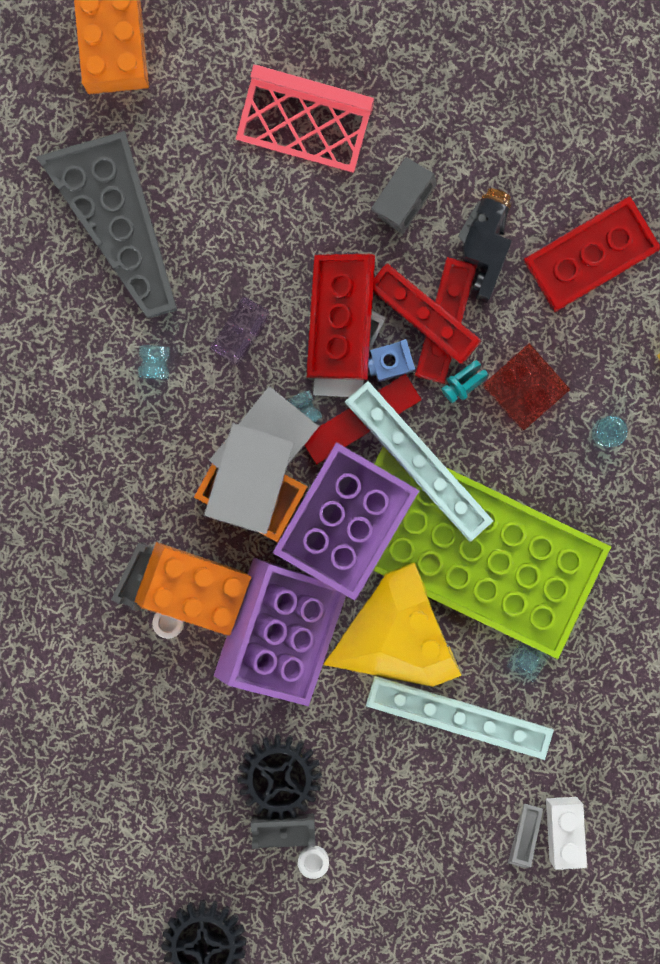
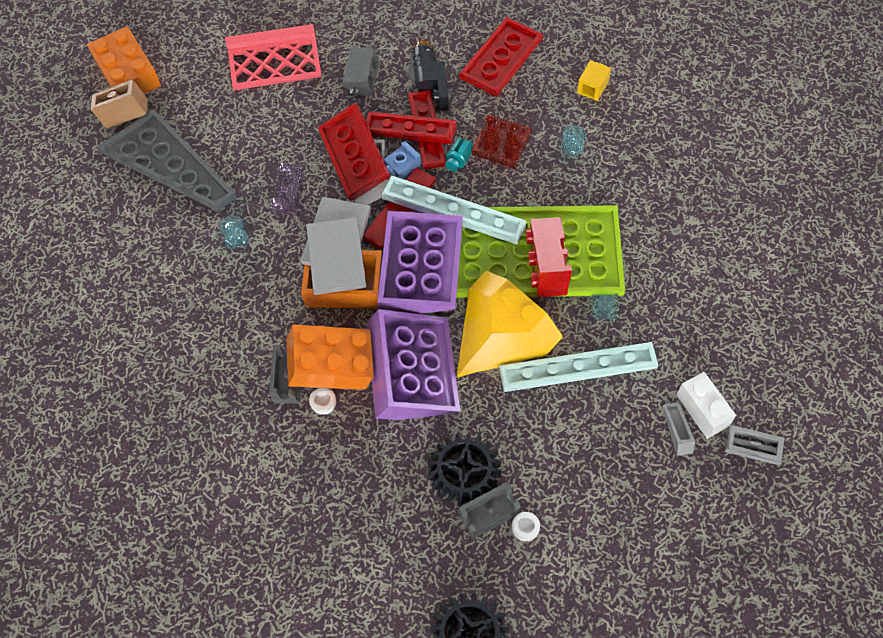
camera: 25 degrees left, 25 degrees down
(83, 108) = (119, 104): none -> medium nougat brick
(491, 583) = (548, 257): none -> wedge
(614, 911) = (730, 448): none -> light grey tile

